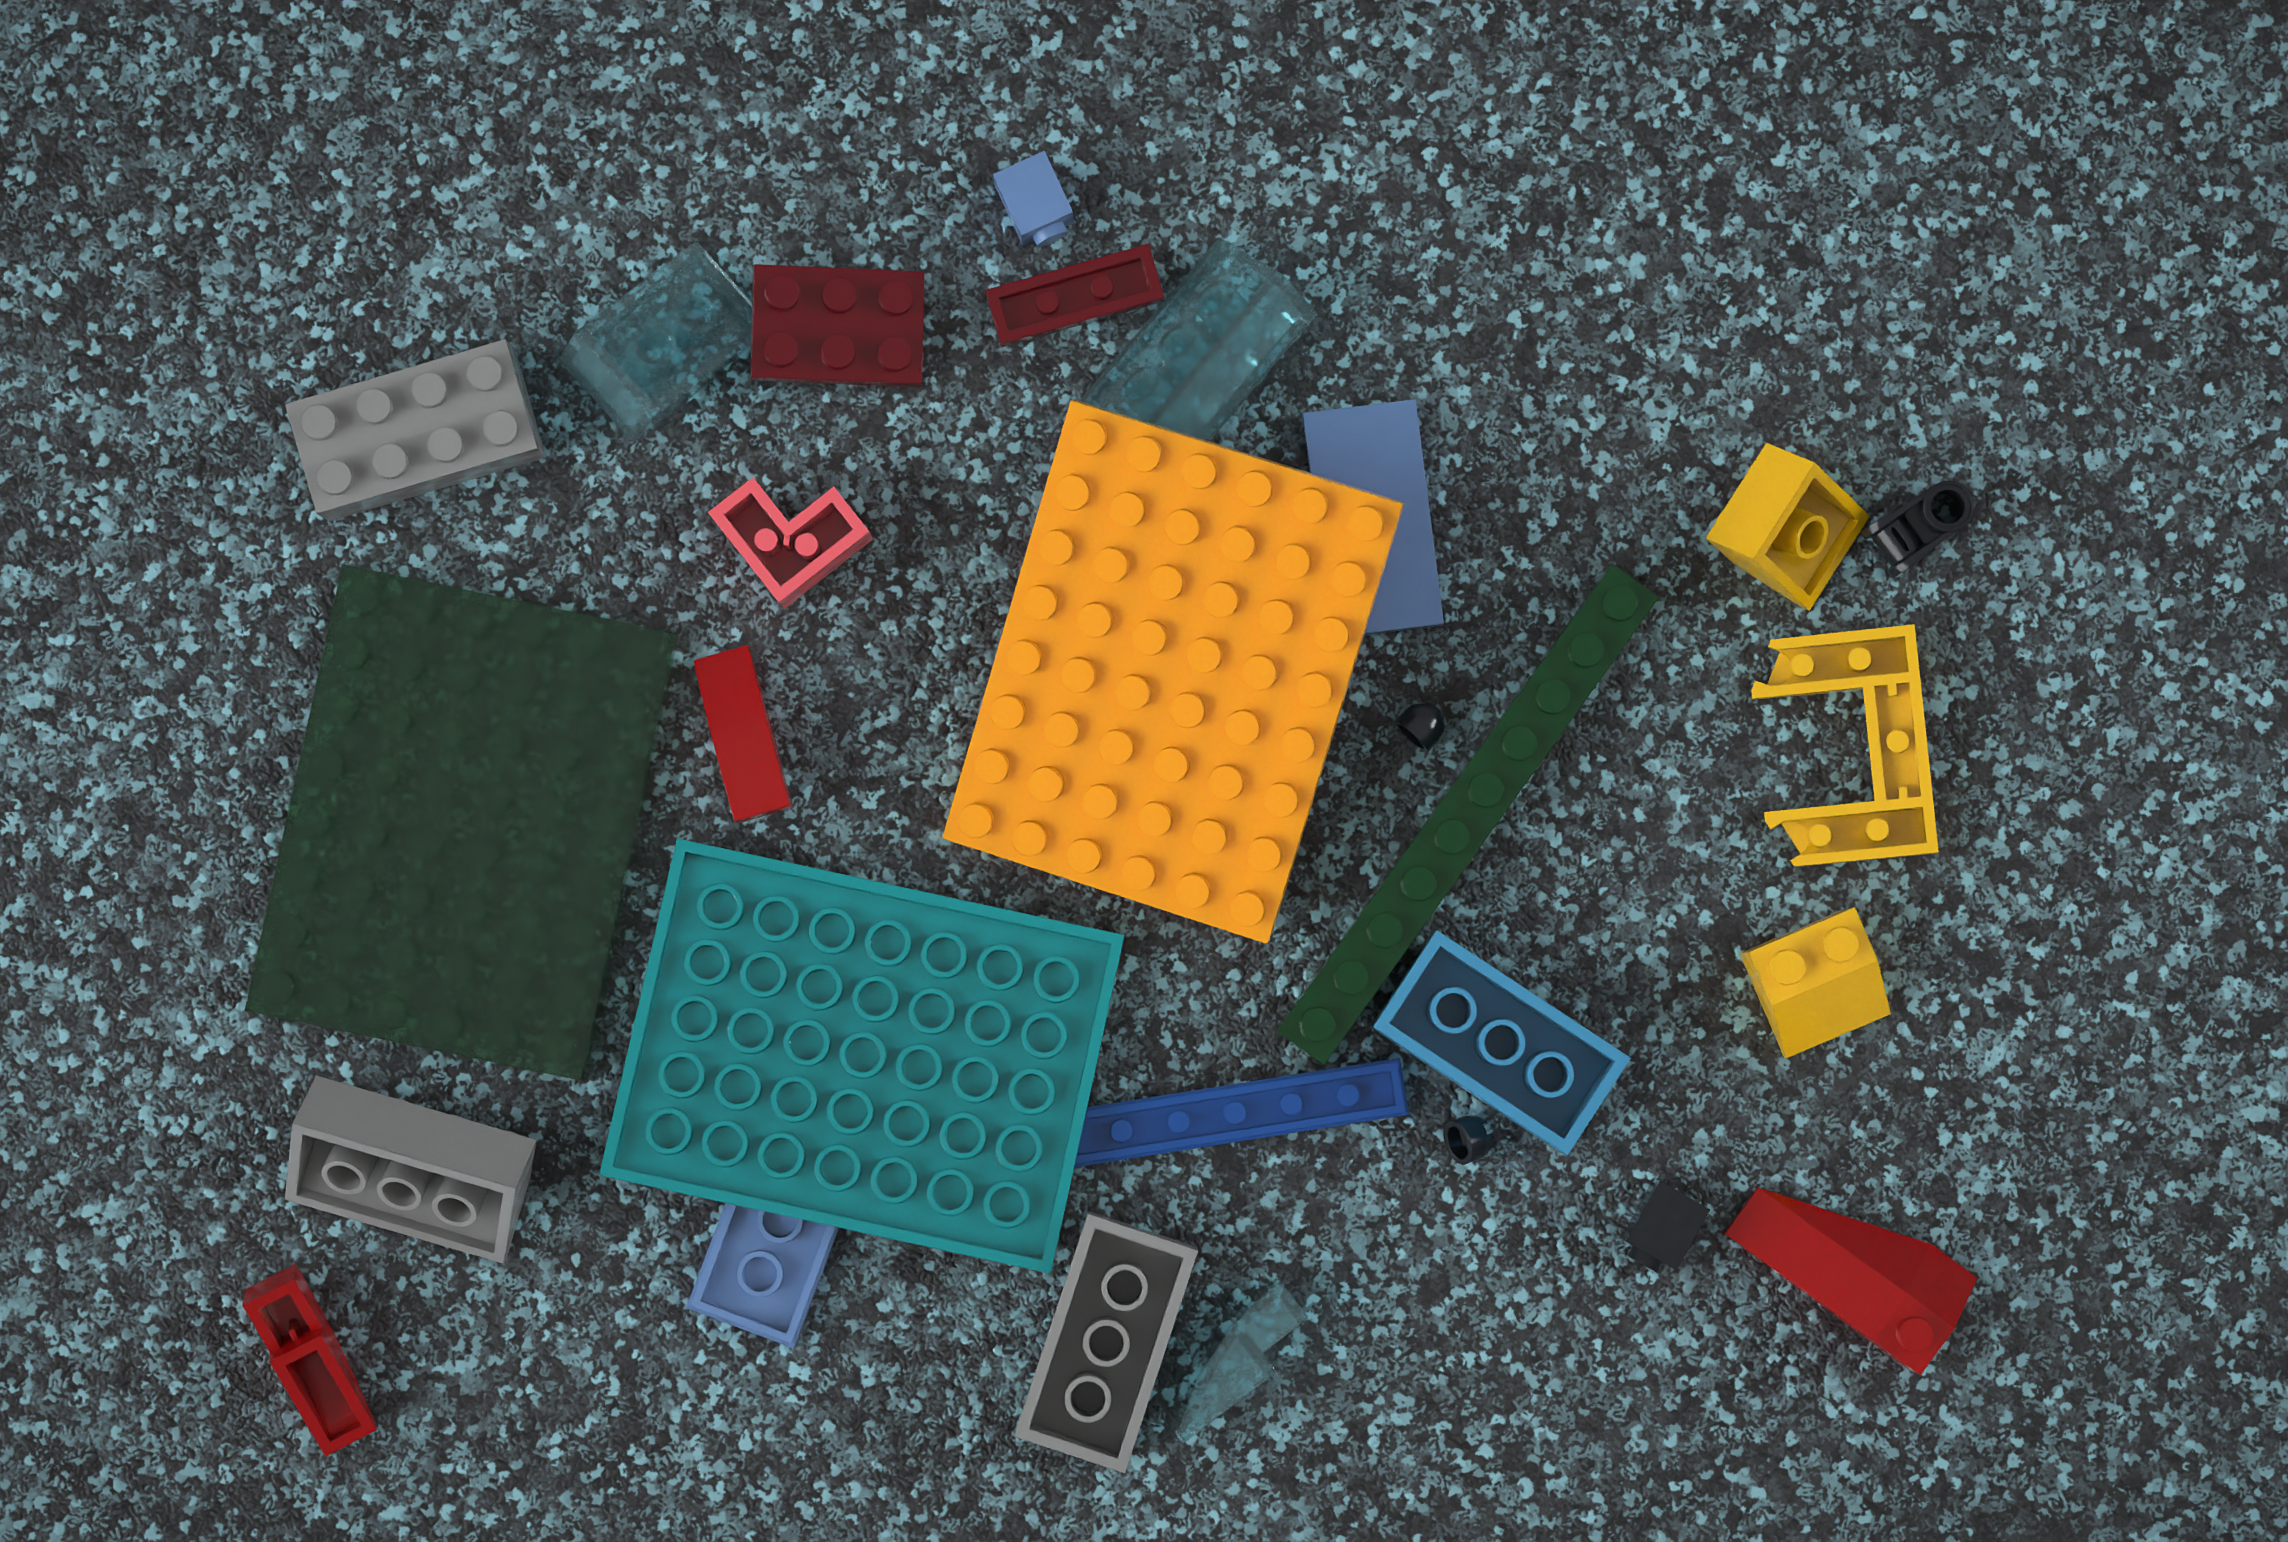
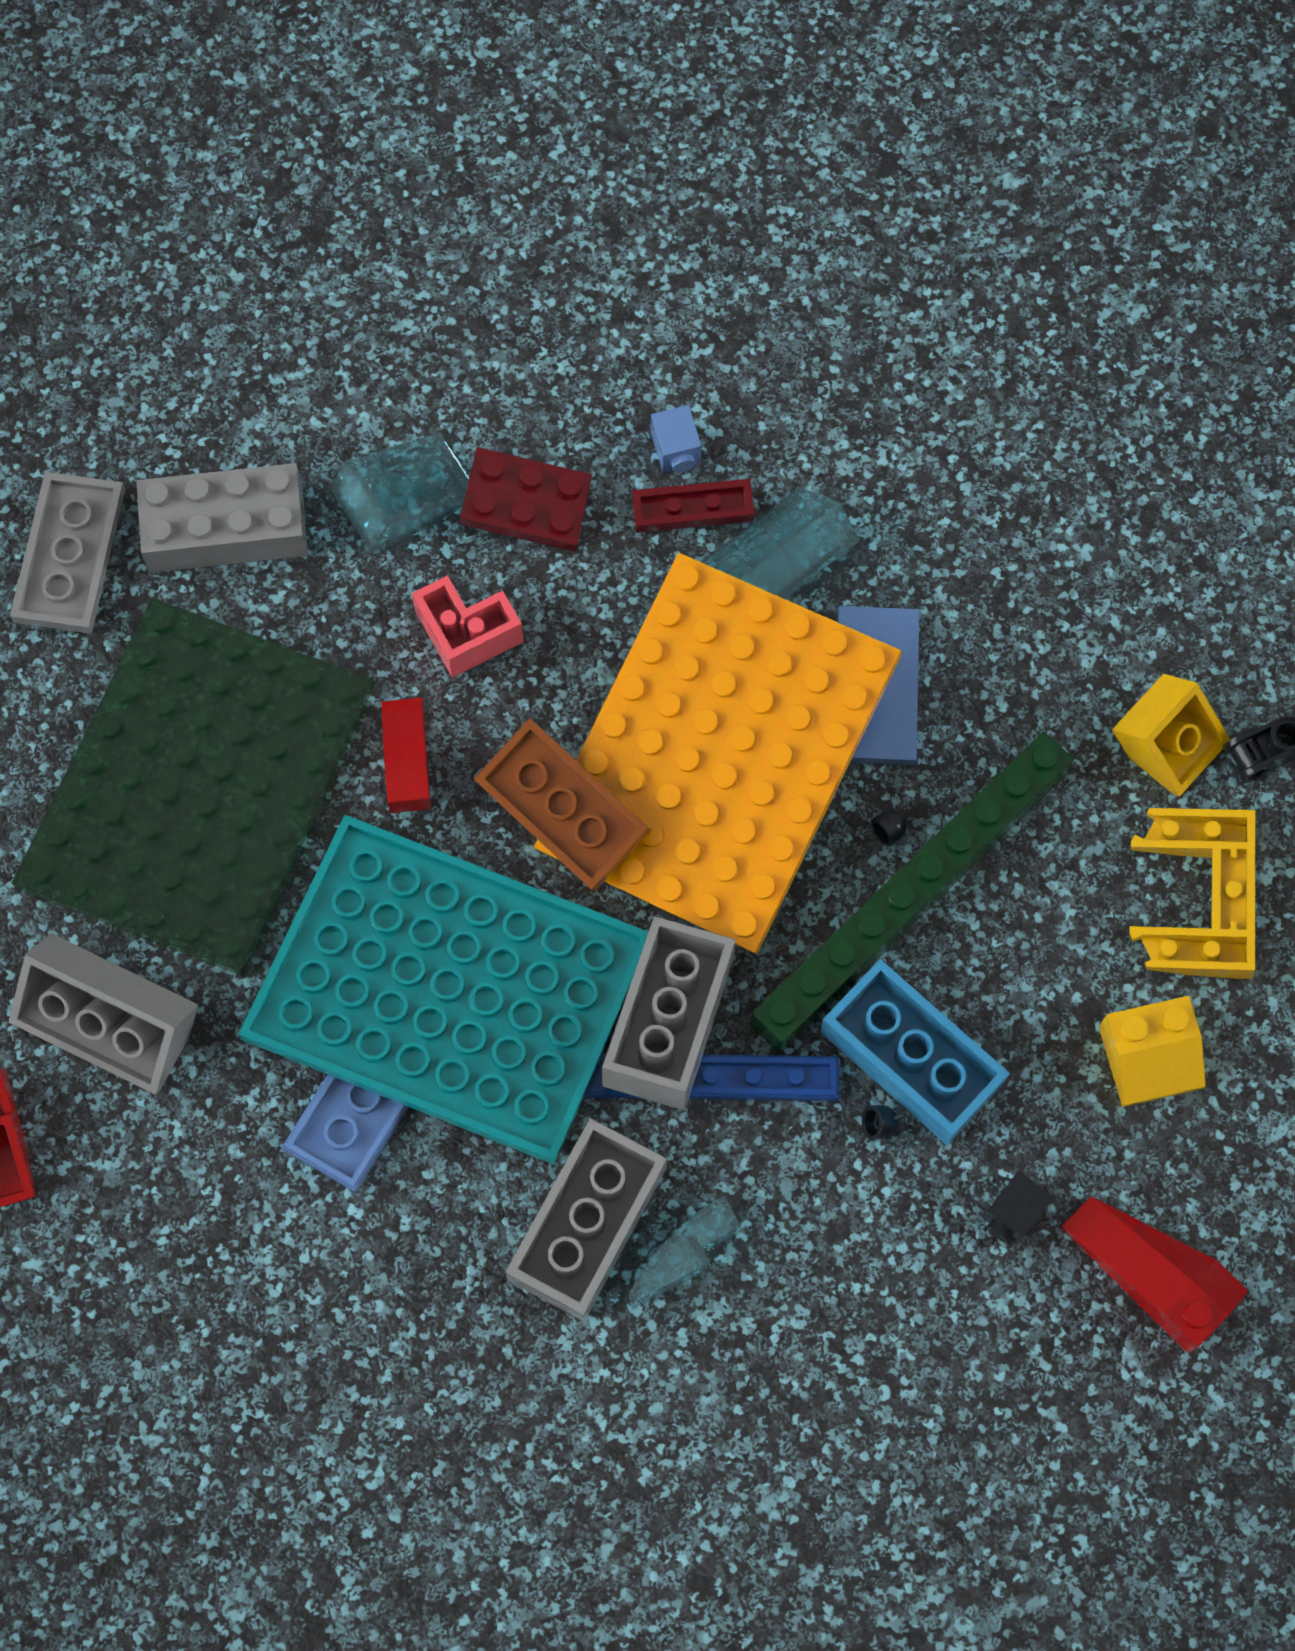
camera: 10 degrees right, 15 degrees down
(209, 516) = (68, 552): none -> light grey plate
(972, 783) = (562, 805): none -> dark orange plate
(1166, 1047) = (668, 1013): none -> light grey brick

